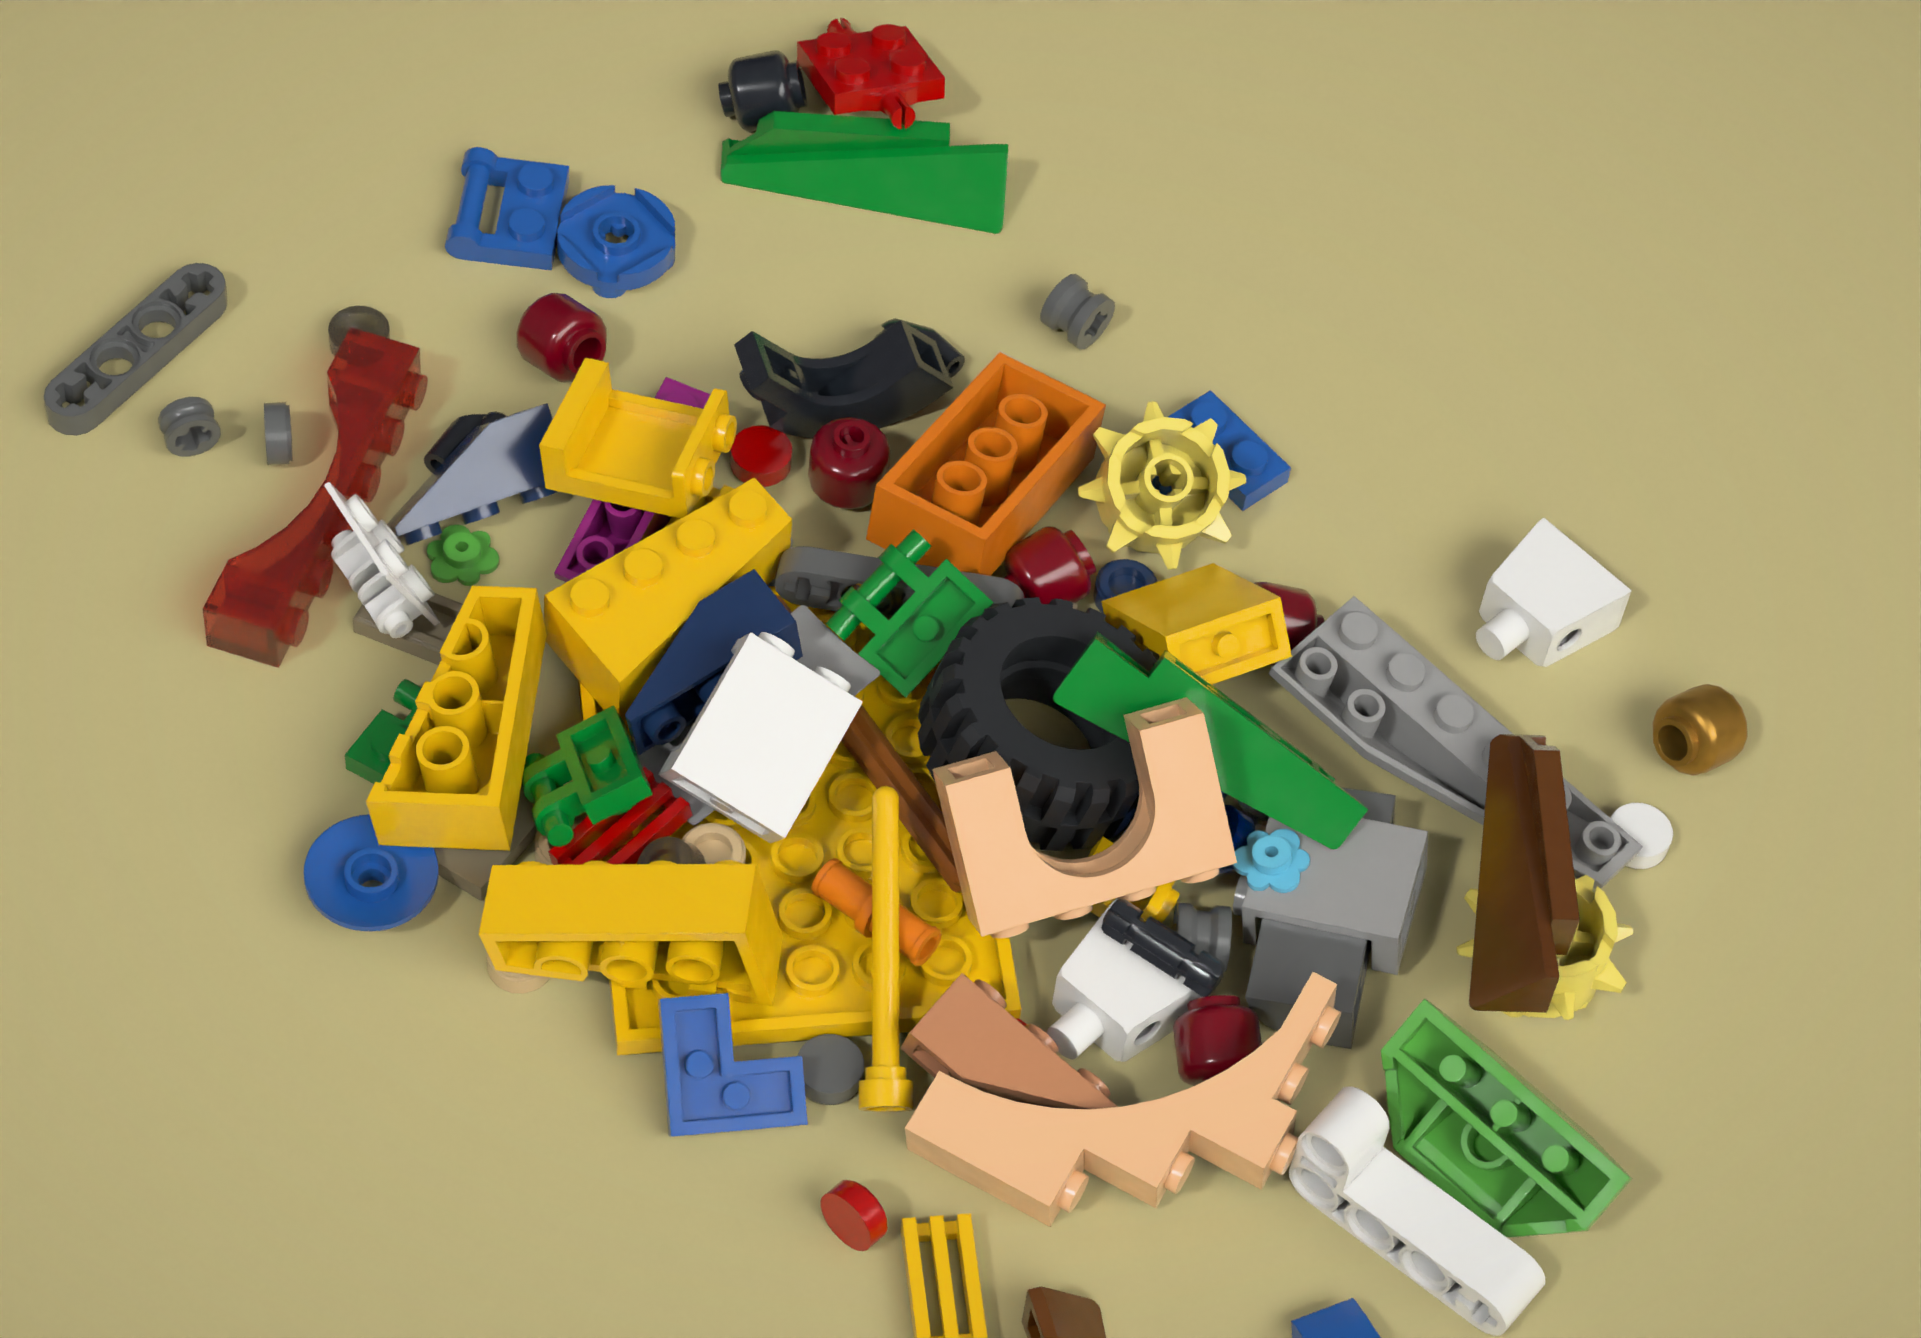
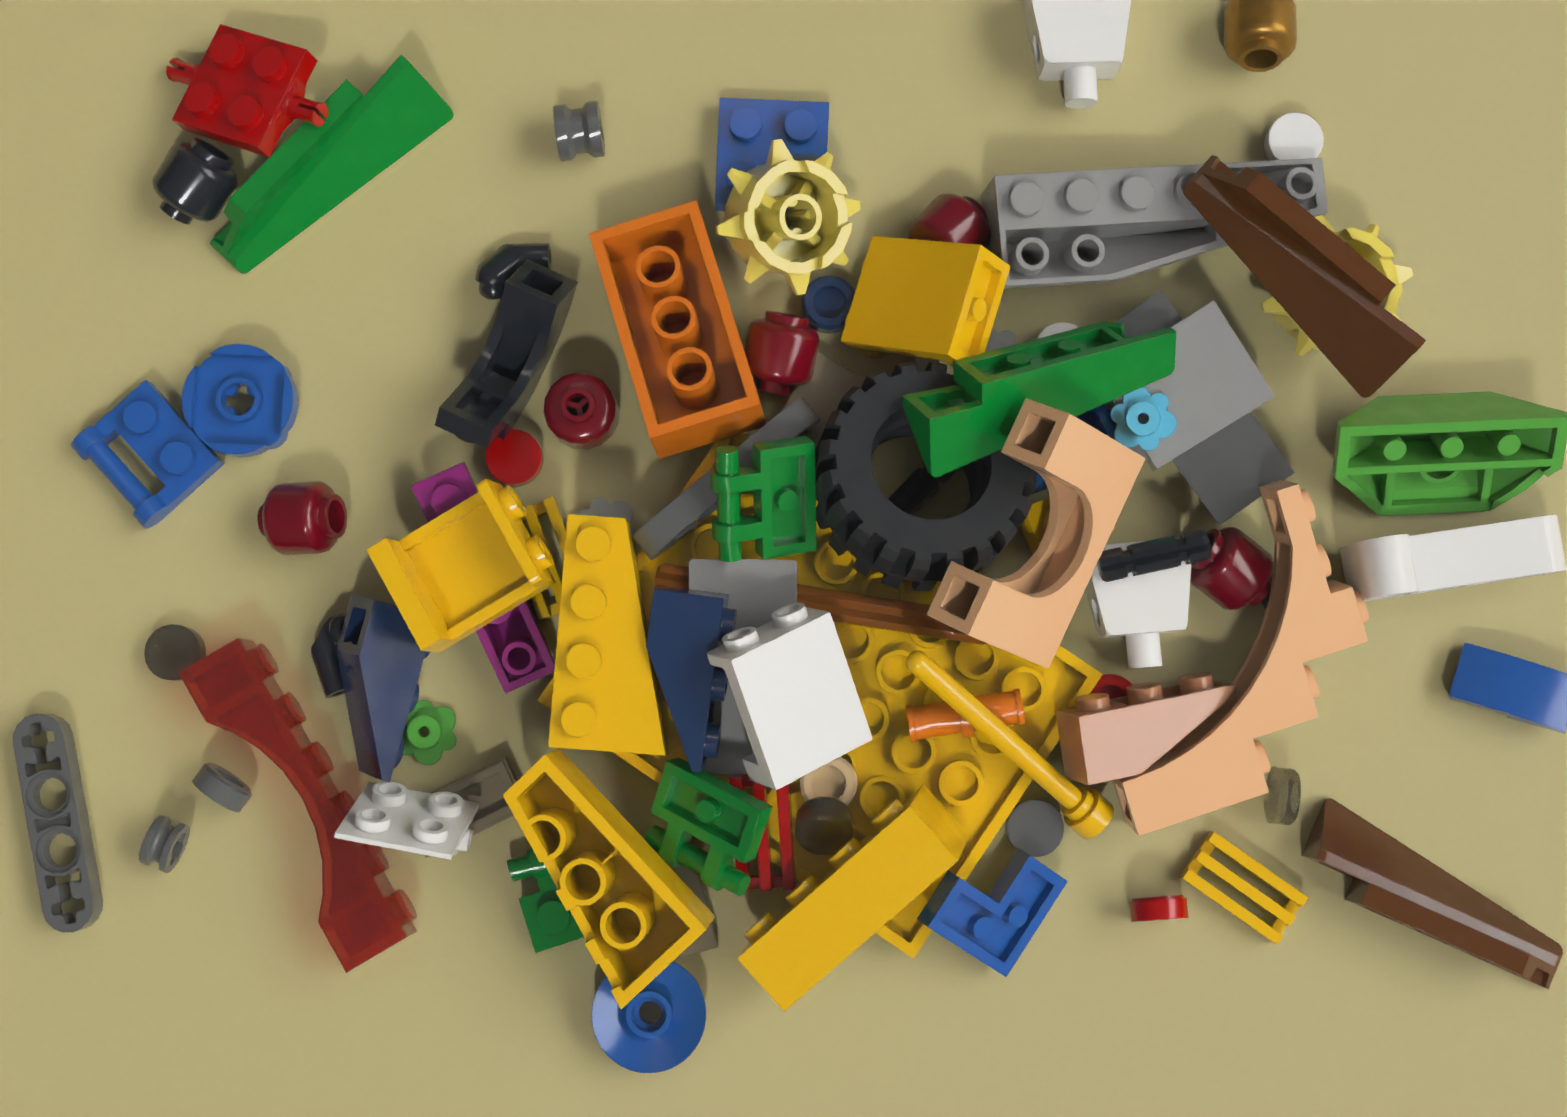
camera: 40 degrees left, 30 degrees up
(1058, 1242) = (1284, 796): none -> clear smoke tile
(1205, 929) = (1146, 506): dark grey wheel -> none

